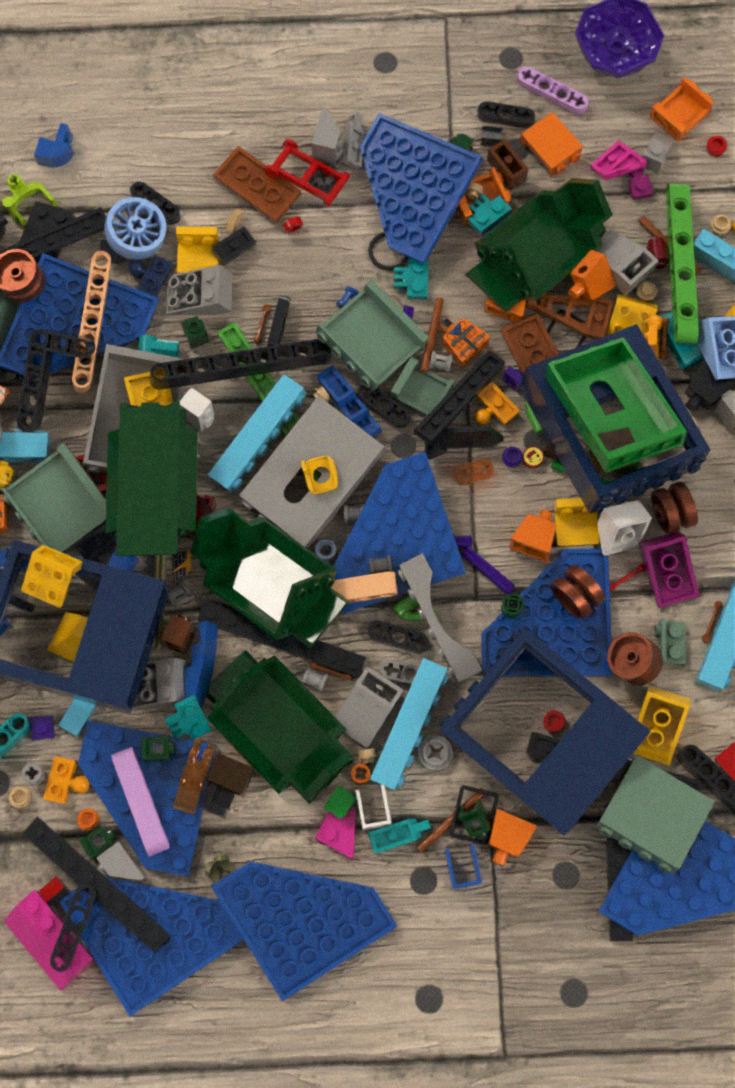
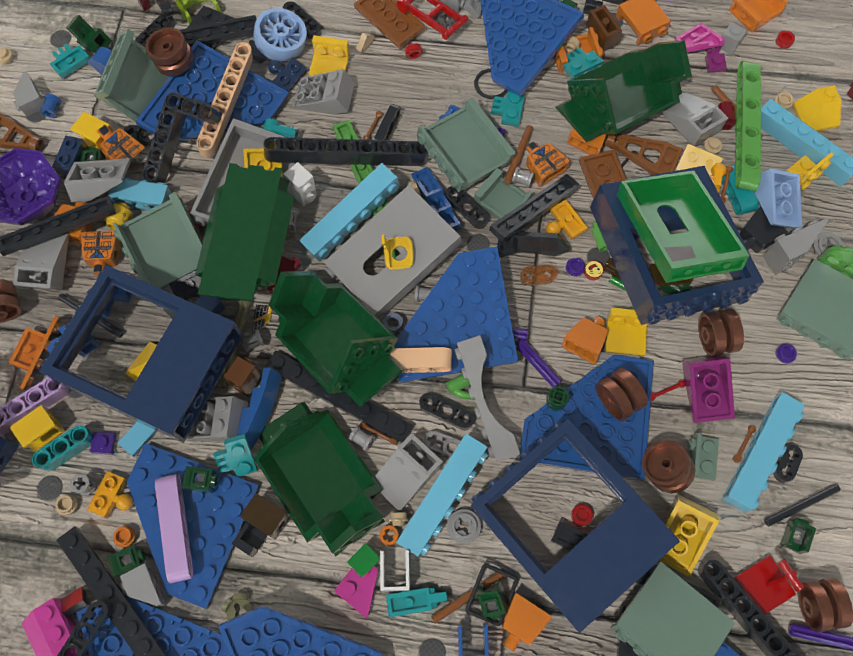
camera: 10 degrees right, 5 degrees down
(50, 575) = (129, 299): yellow bracket -> none
(193, 777) = (227, 512): clear orange plate -> none
(195, 332) = (313, 123): dark green window -> none
(233, 246) = (360, 60): black plate -> none
(381, 565) = (440, 340): dark grey bush -> none
(512, 378) = (584, 200): dark purple plate -> none
(591, 277) = (667, 124): orange torso -> none
(622, 526) = (670, 342): white slope -> none

